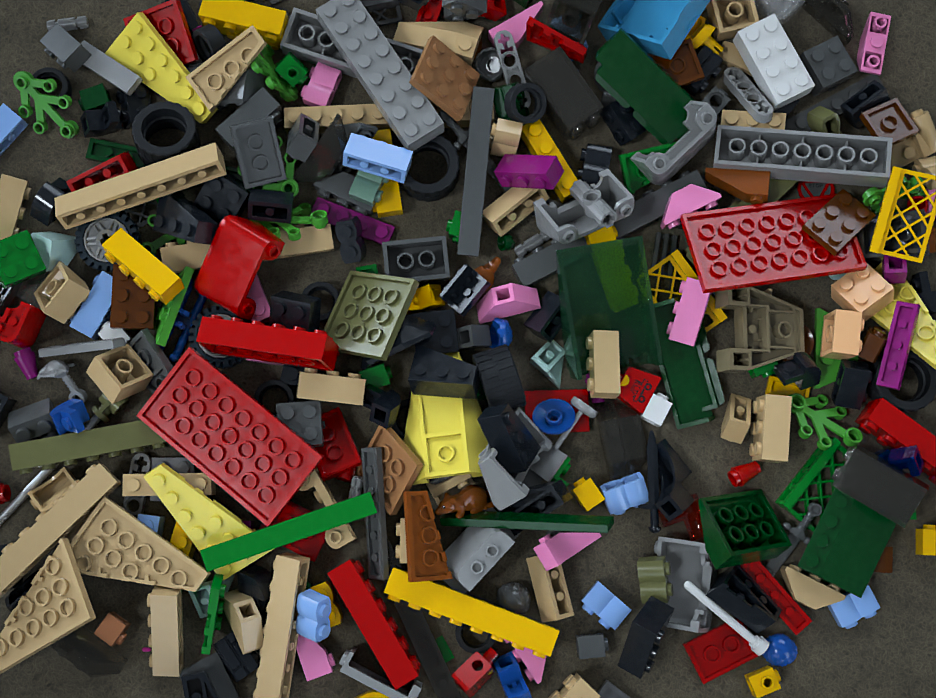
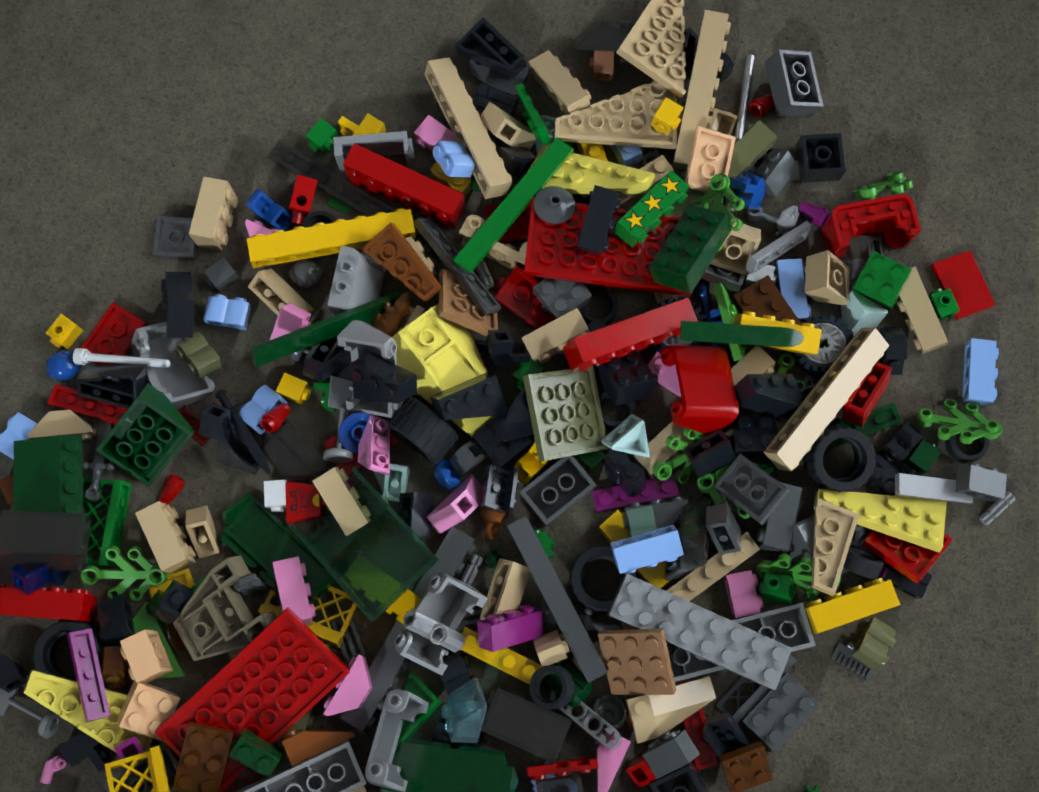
camera: 155 degrees right, 5 degrees down
(85, 460) = (709, 156): none -> light nougat tile
(93, 525) = (667, 117): none -> yellow brick
(112, 407) = (718, 192): none -> bright green plant
(162, 383) = (690, 248): none -> dark green brick
(169, 445) = (651, 209): none -> green brick
(175, 279) = (739, 334): none -> dark green piece
(226, 459) = (598, 221): none -> black wedge
(263, 506) = (554, 212): none -> dark grey dish
(328, 264) = (629, 437): none -> light aqua slope
(548, 392) = (375, 446): none -> bright pink slope
(606, 128) = (465, 712): none -> clear light blue slope
(619, 474) = (274, 418): none -> red cone
(722, 343) = (251, 585): none -> dark grey piece
(793, 199) = (255, 753): none -> dark green brick

